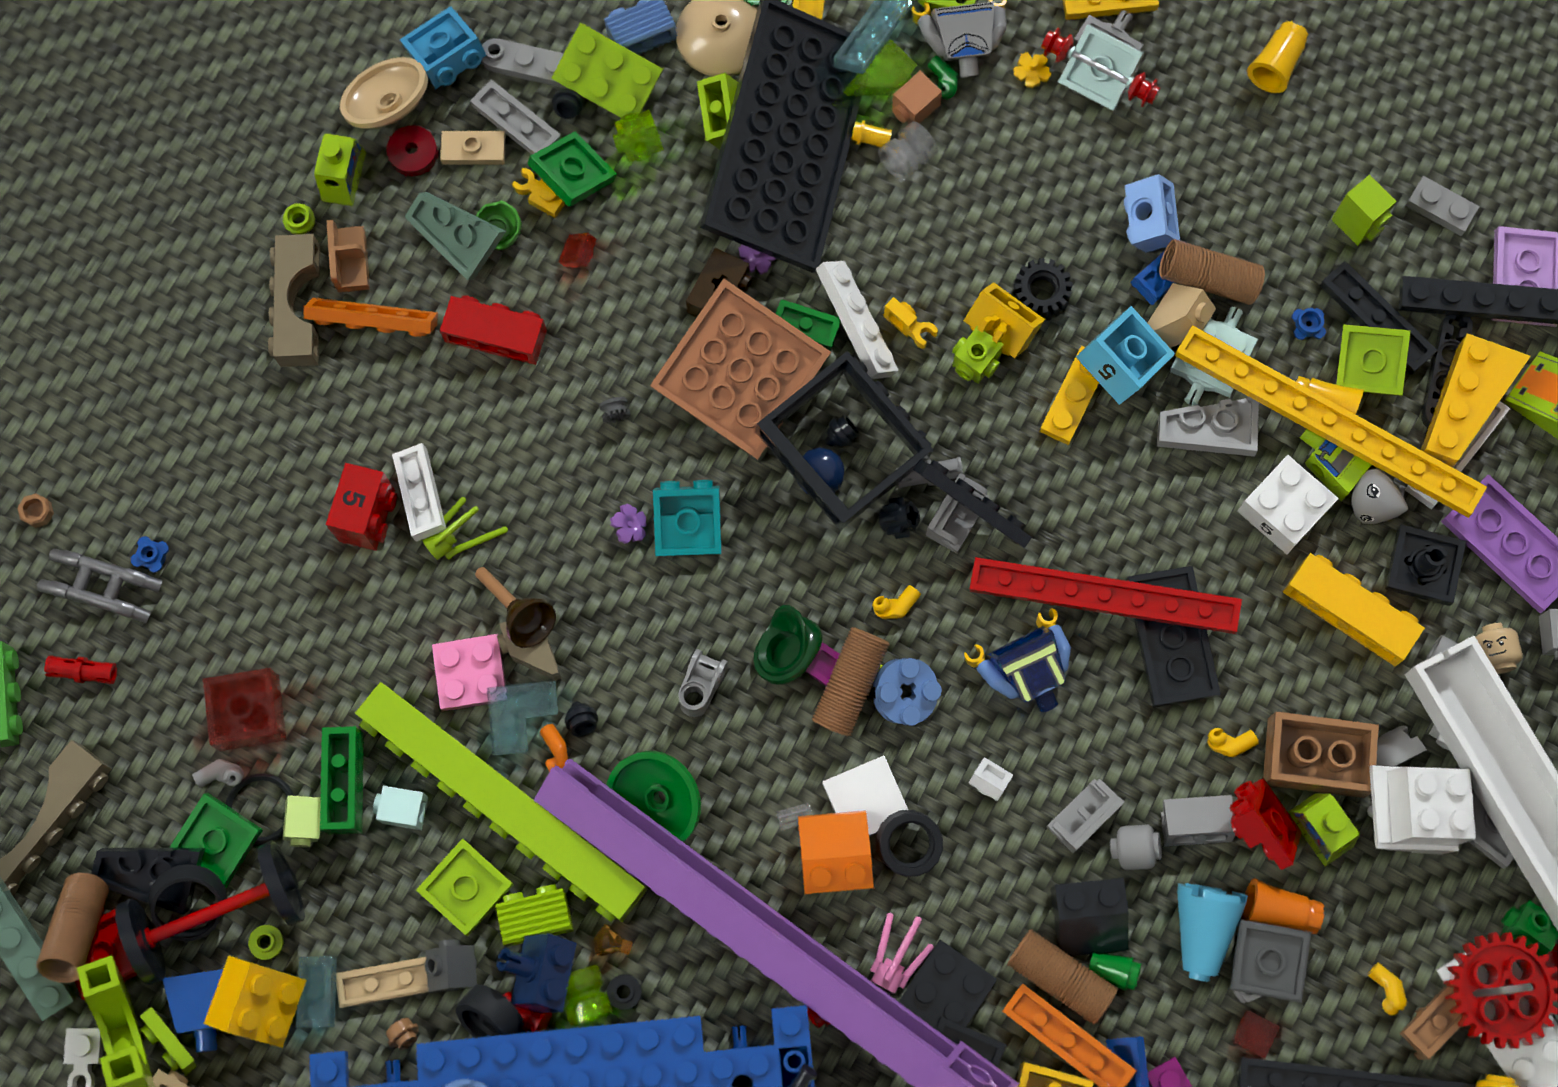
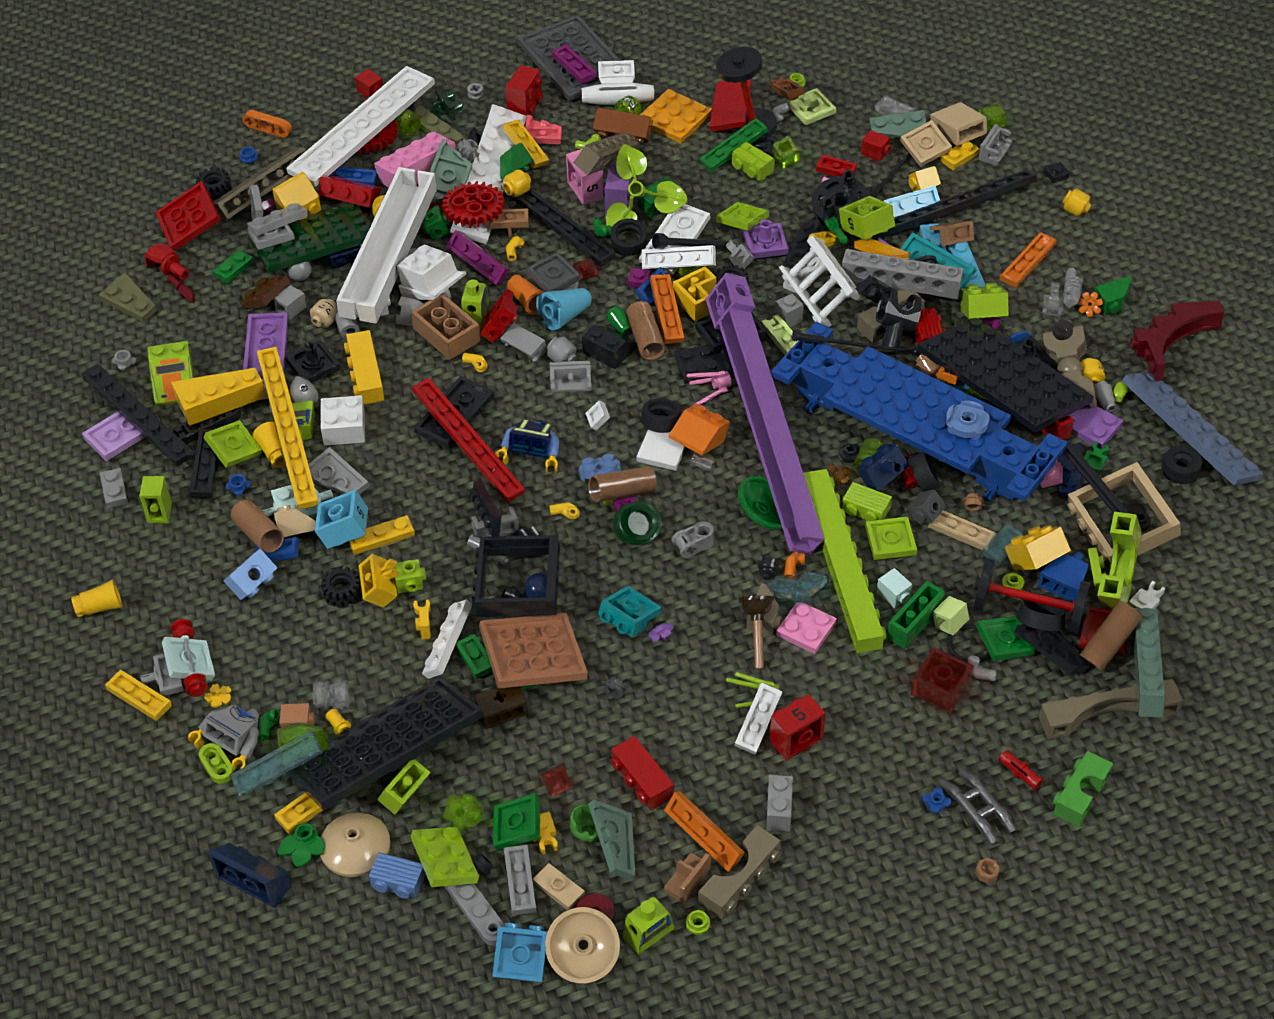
camera: 140 degrees left, 25 degrees down
(314, 408) = (779, 803): none -> light grey brick
(1411, 921) = (478, 258): none -> magenta plate

